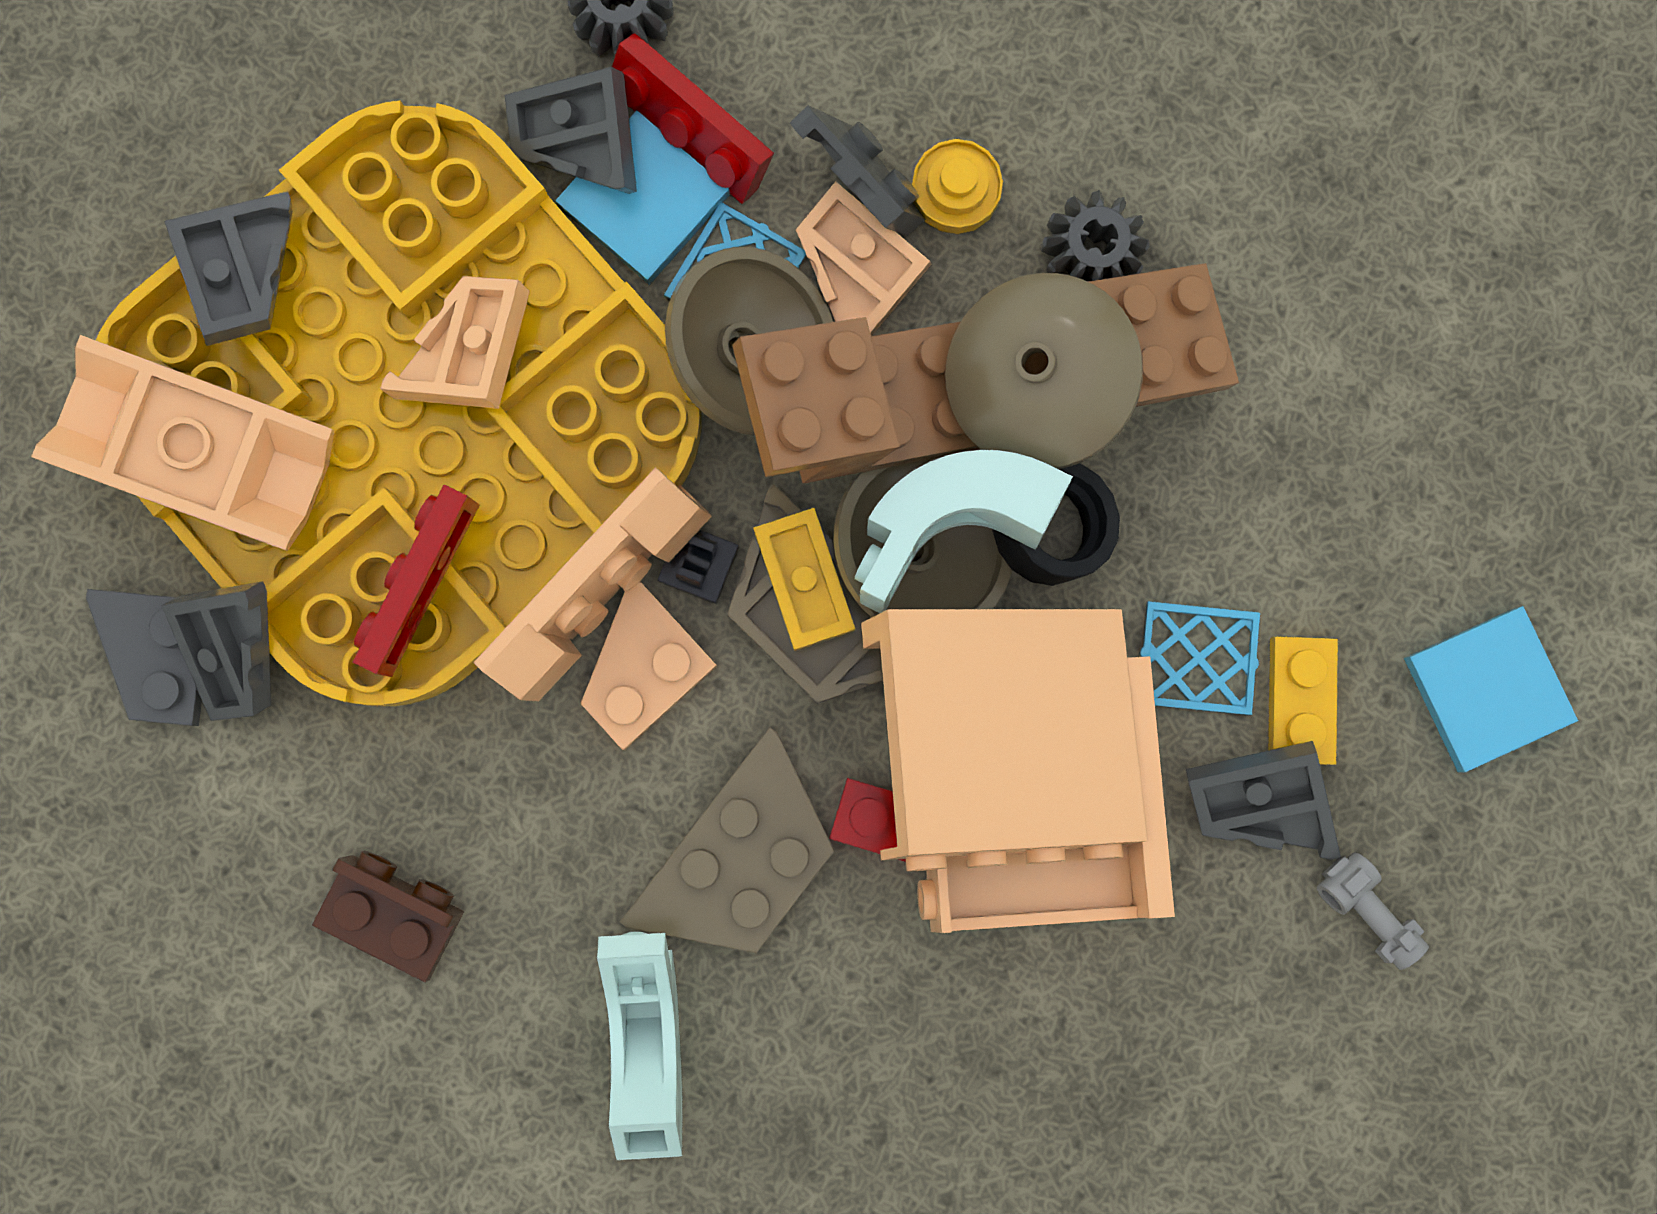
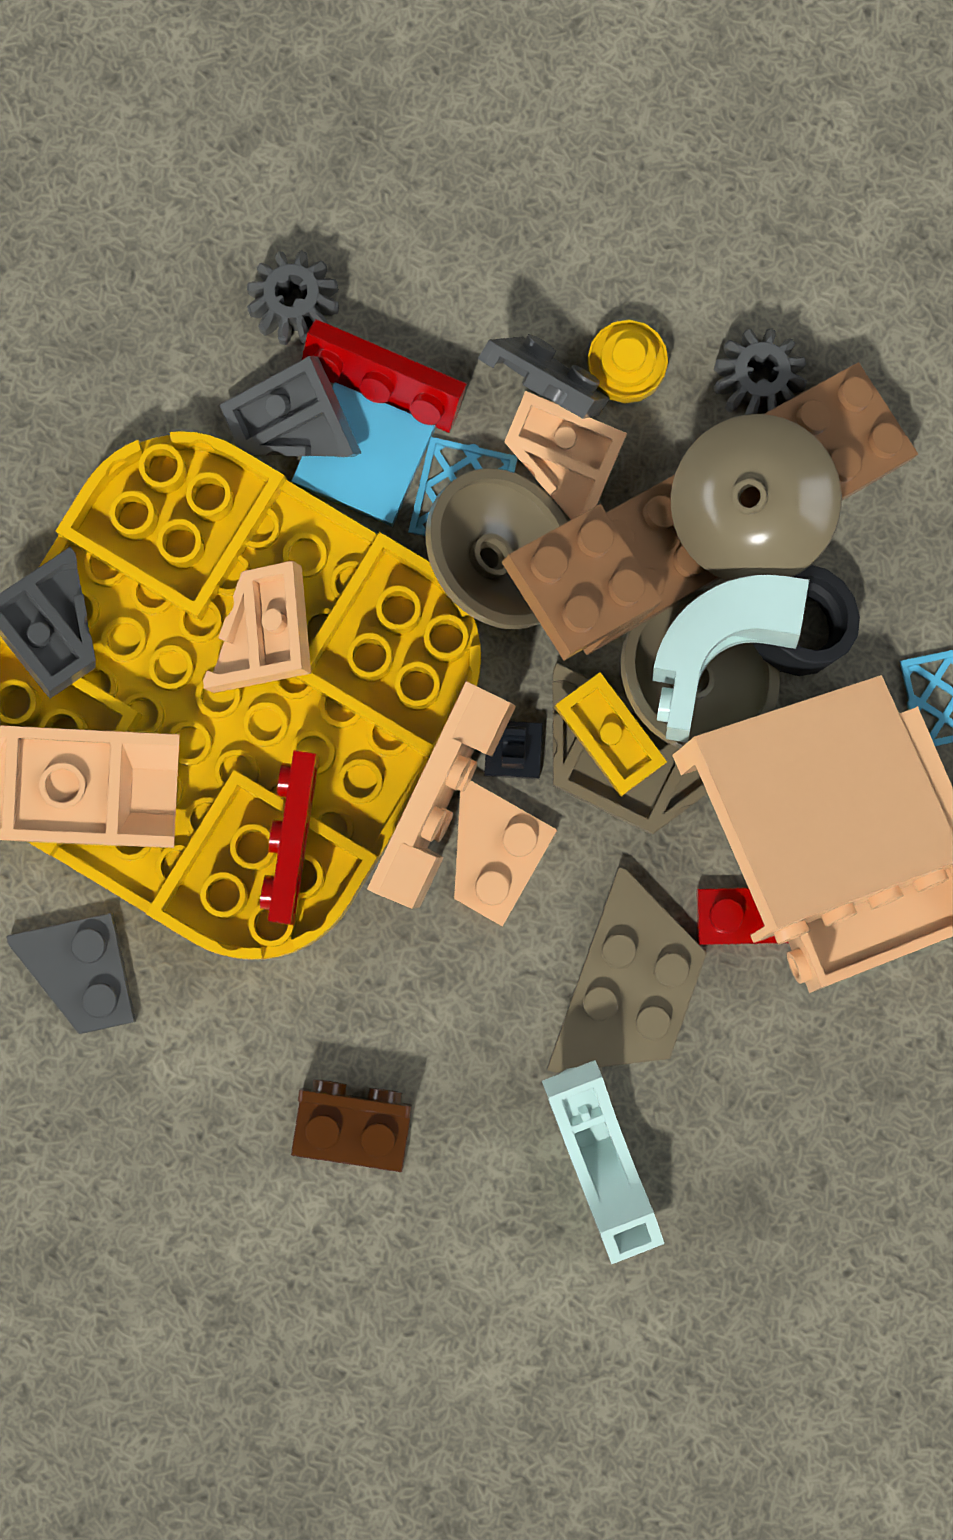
camera: 15 degrees left, 0 degrees up
(225, 647) = (146, 945): dark grey wing -> none

